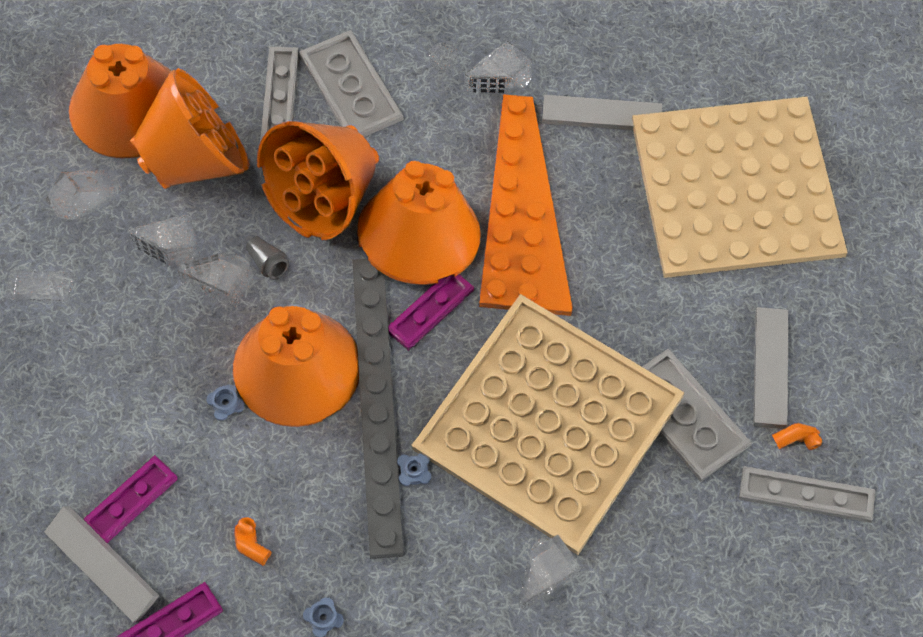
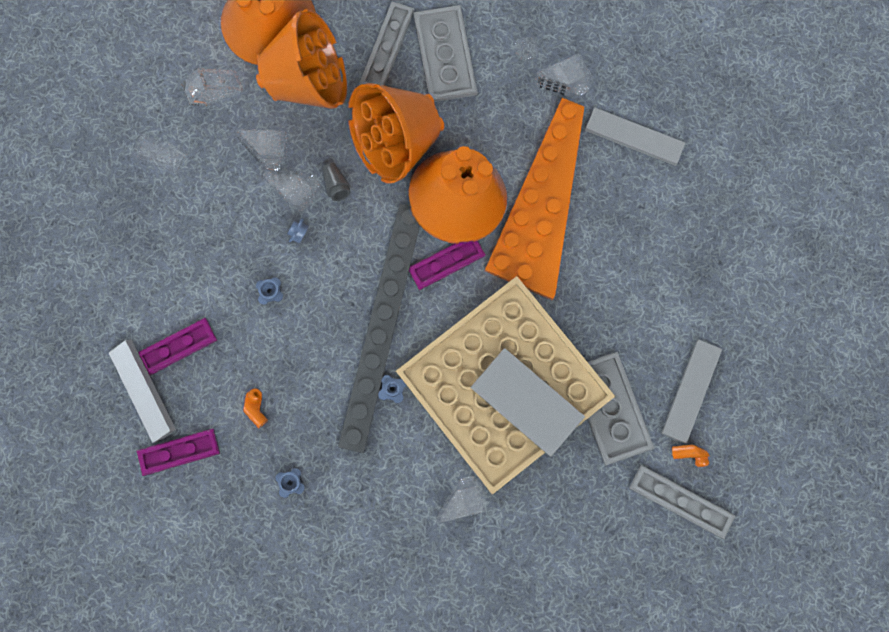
camera: 15 degrees right, 15 degrees up
(238, 323) = (297, 231): none -> sand blue plate
(296, 367) = (331, 278): orange cone -> none
(583, 430) = (527, 402): none -> light grey tile
(737, 187) = (720, 232): tan plate -> none

